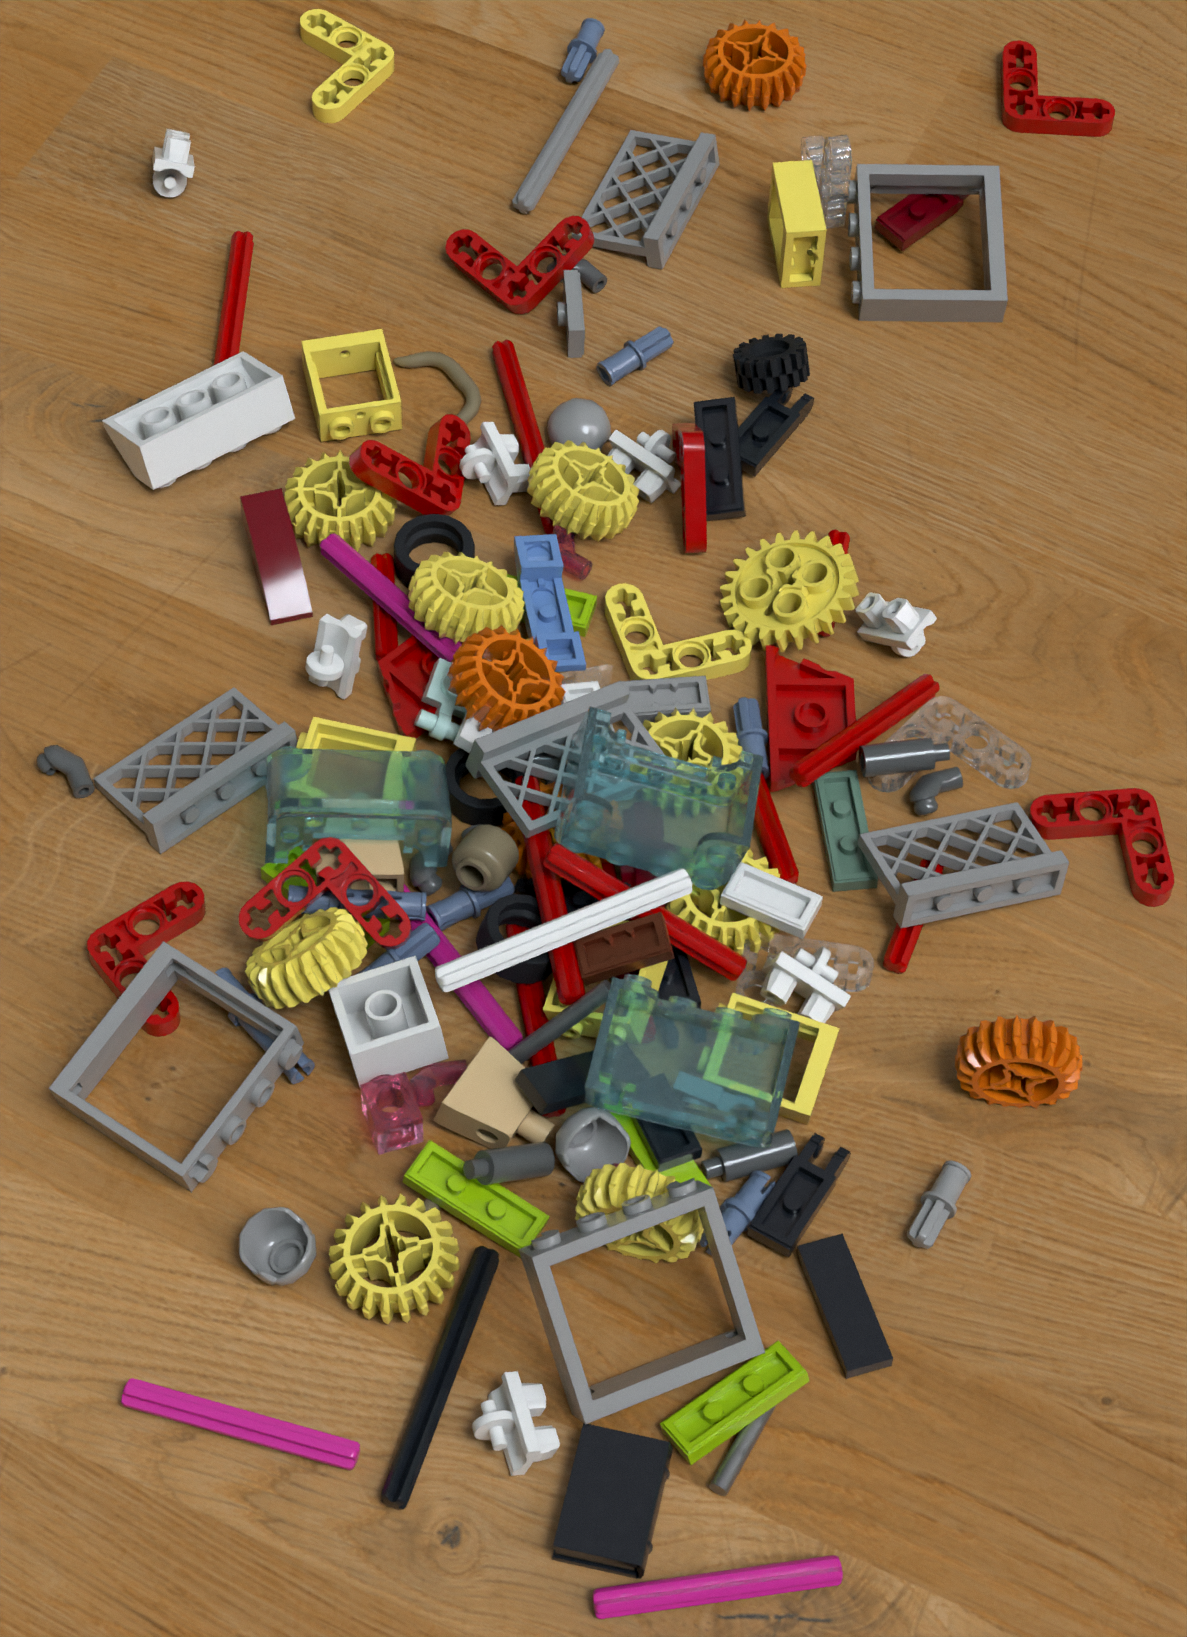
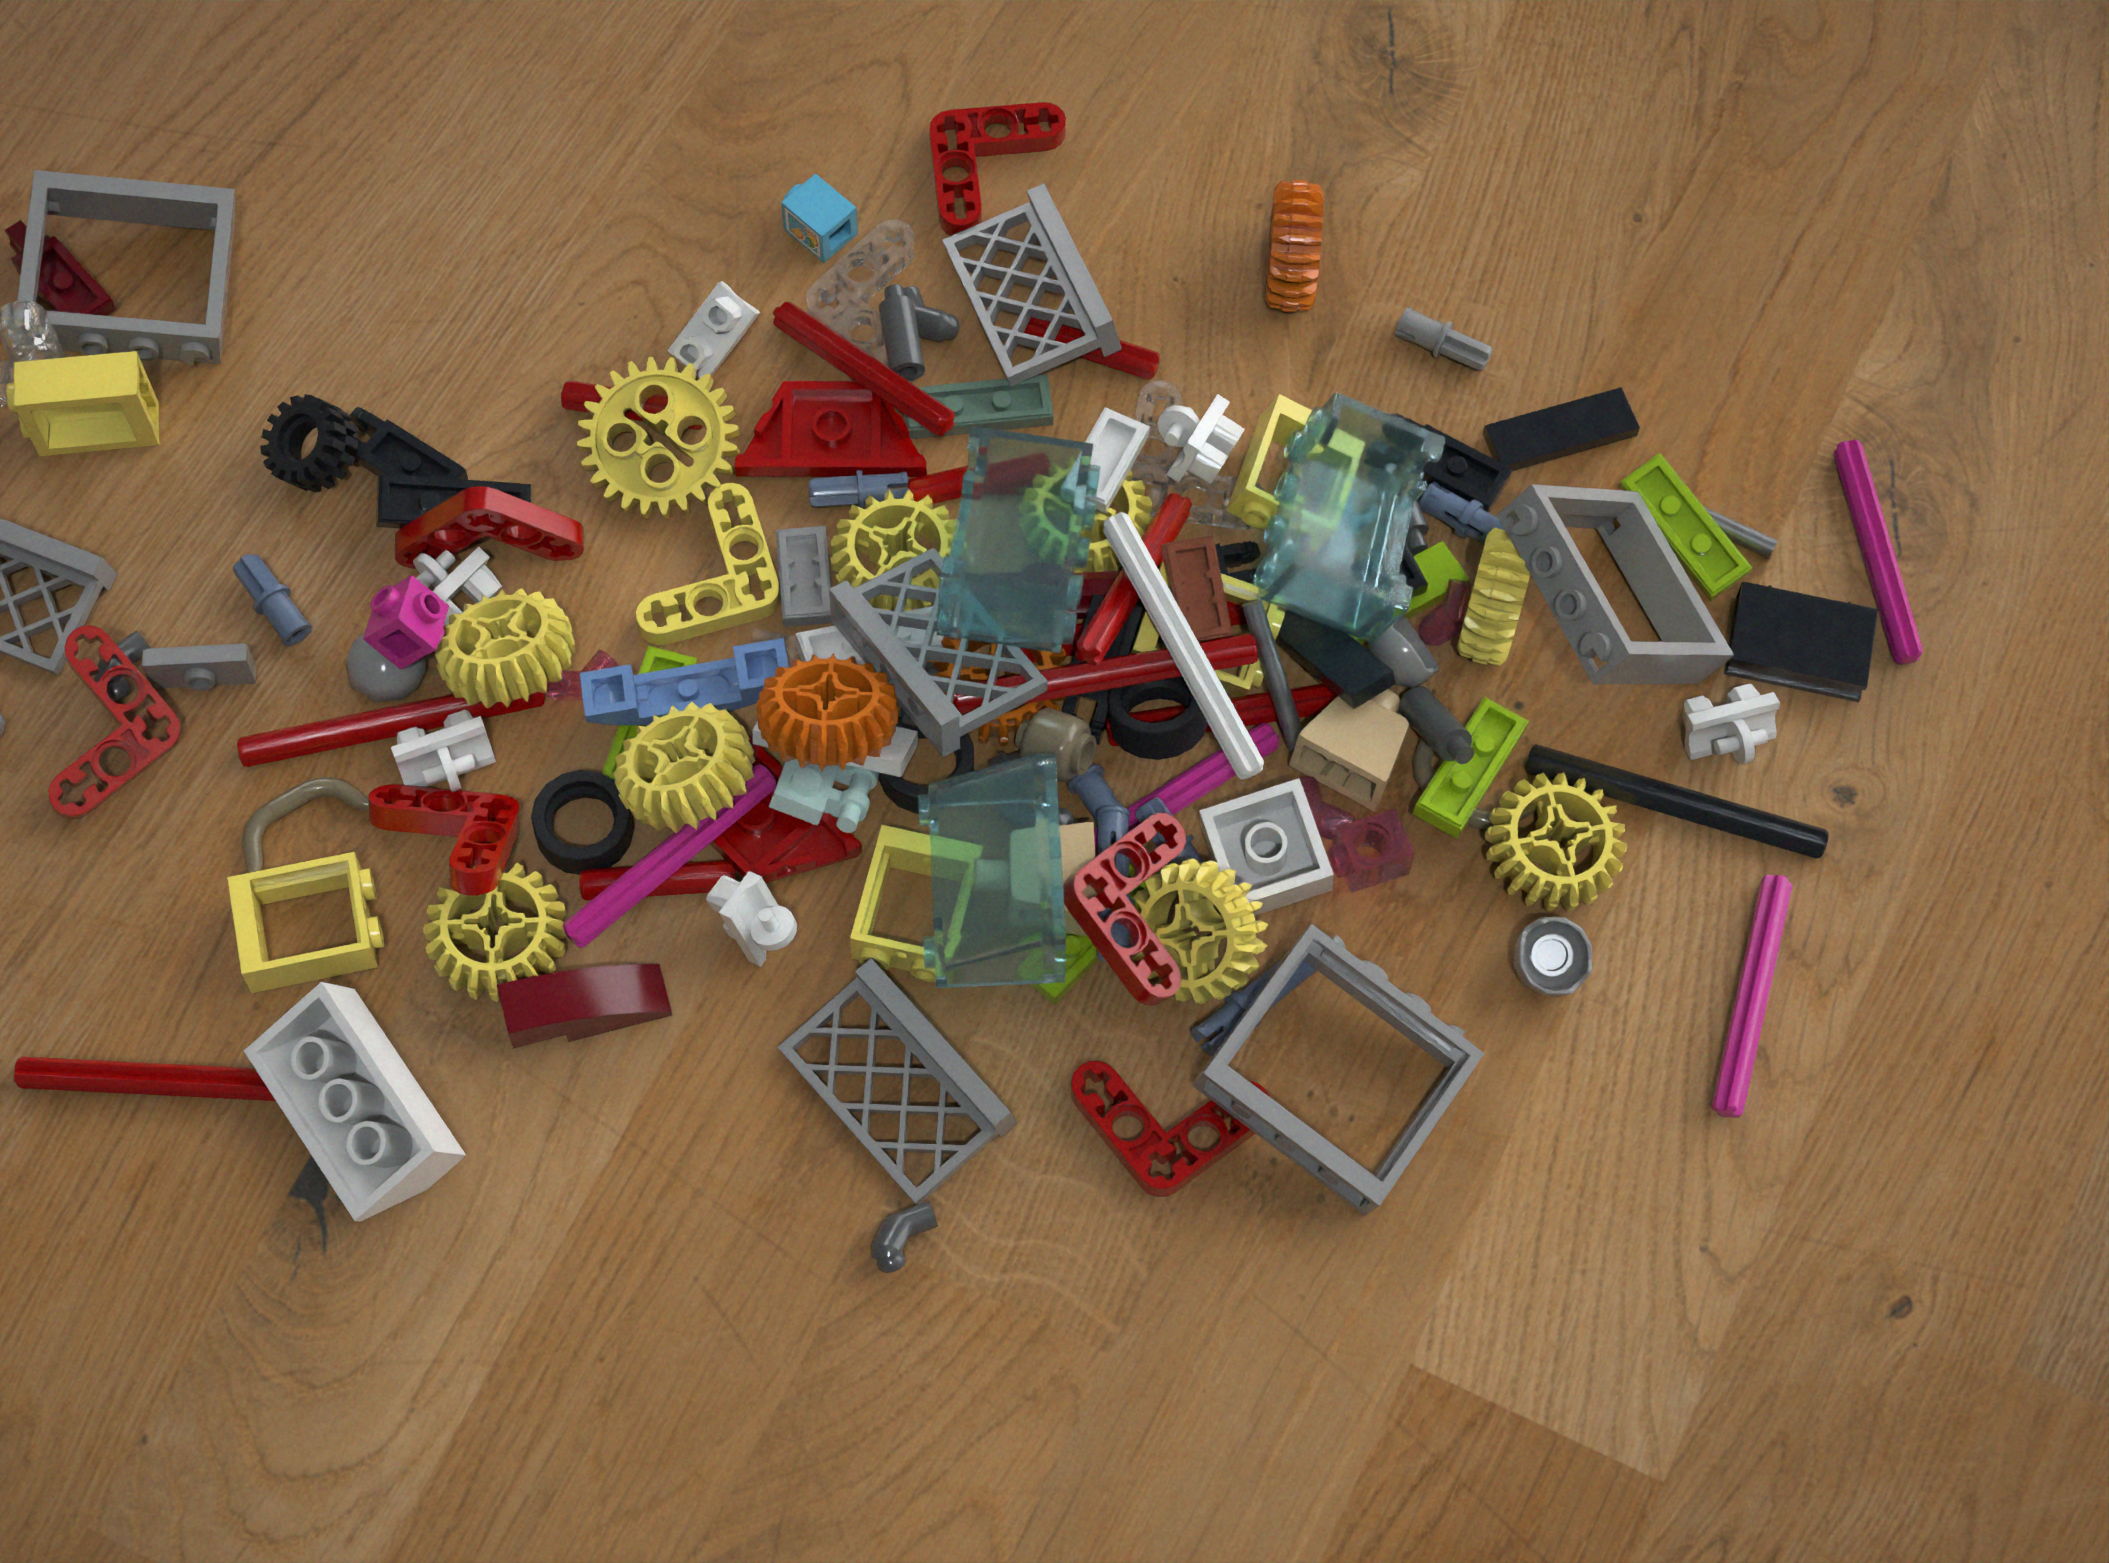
camera: 90 degrees left, 10 degrees up
(583, 403) = (405, 622): none -> dark pink brick
(1027, 705) = (819, 217): none -> medium azure brick

